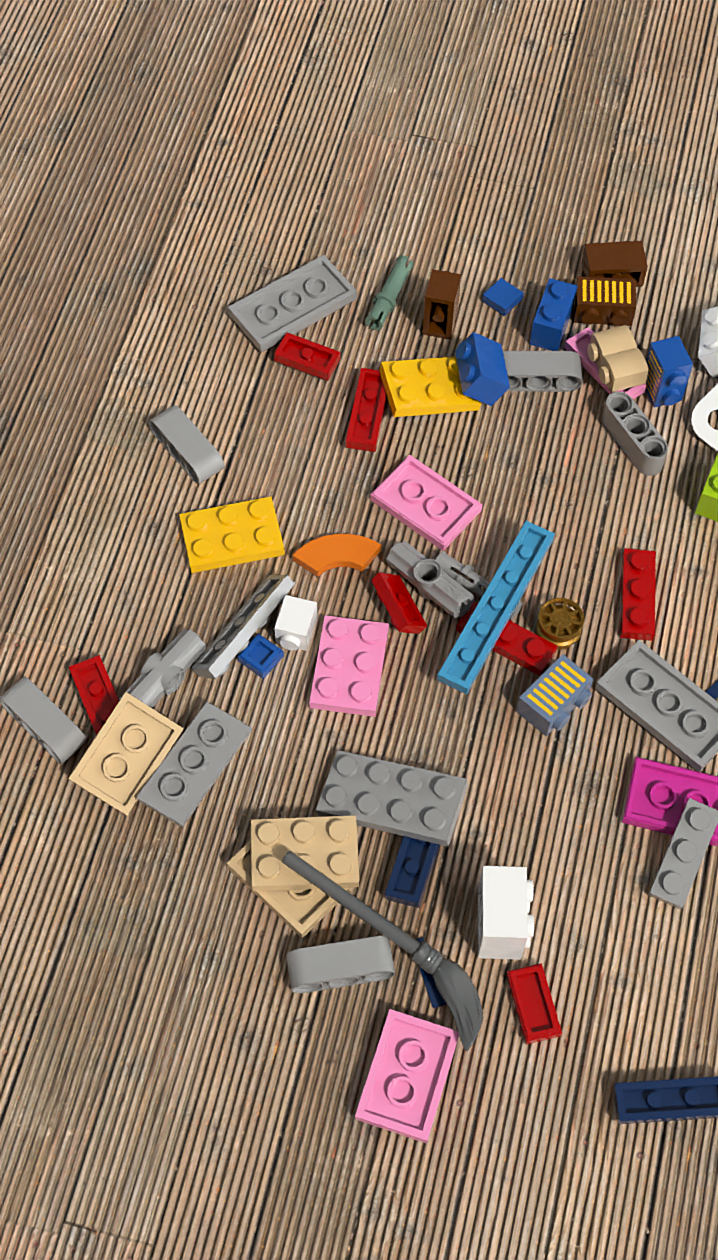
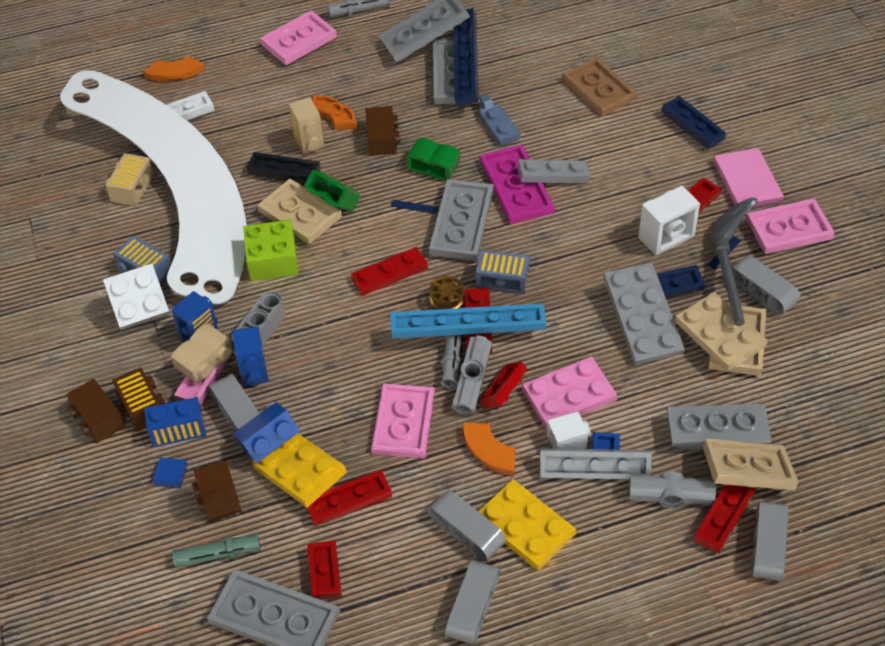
camera: 120 degrees left, 10 degrees down
(275, 477) = (466, 525): none -> light grey beam
(526, 1096) = (748, 177): none -> bright pink tile
(585, 395) = (250, 356): none -> blue brick

